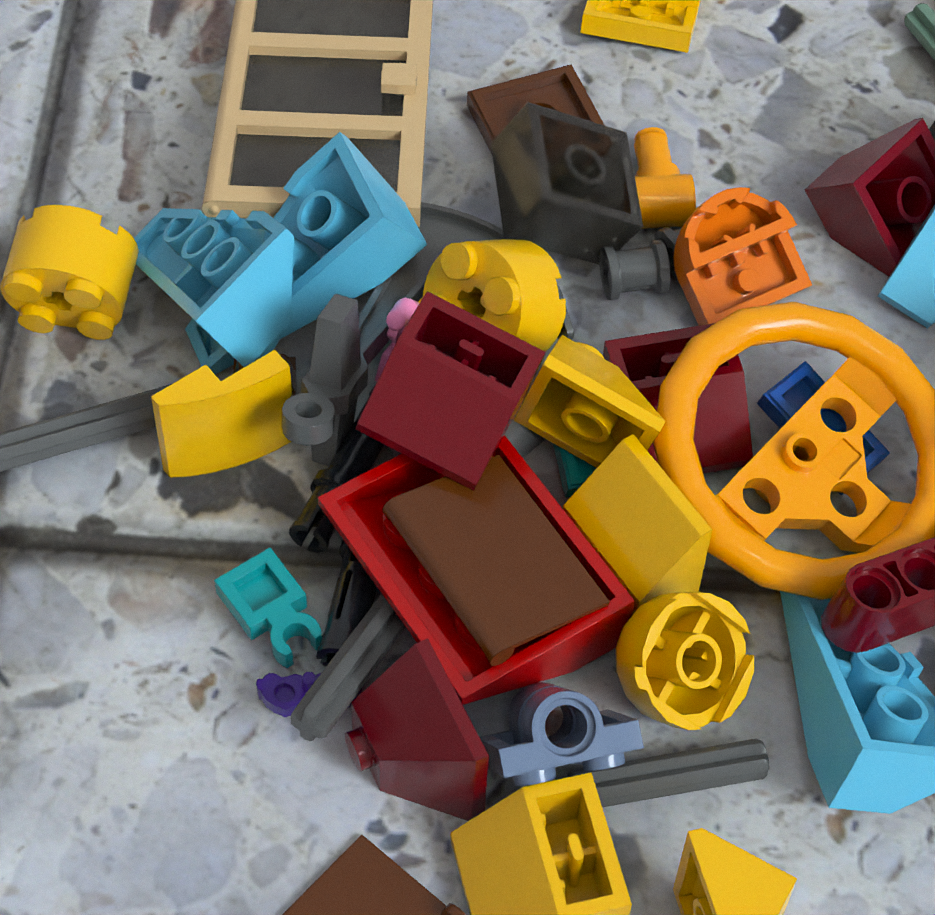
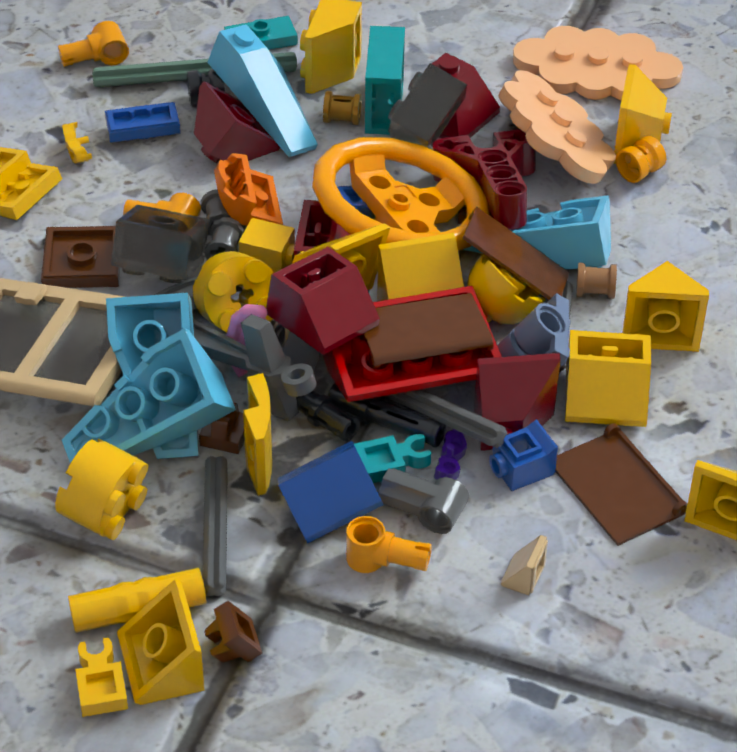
camera: 70 degrees left, 10 degrees down
(78, 646) = (372, 547): none -> light orange pin
(105, 857) = (526, 566): none -> tan slope
(169, 539) = (329, 491): none -> blue slope
(197, 687) = (435, 503): none -> dark grey piece
(329, 812) = (525, 457): none -> blue window
(642, 305) = (269, 243): none -> yellow brick
(746, 650) = (515, 254): none -> reddish brown piece
(766, 31) = (76, 151): none -> yellow piece
(793, 804) = (596, 280): none -> medium nougat bush
(847, 96) = (142, 122): none -> blue plate

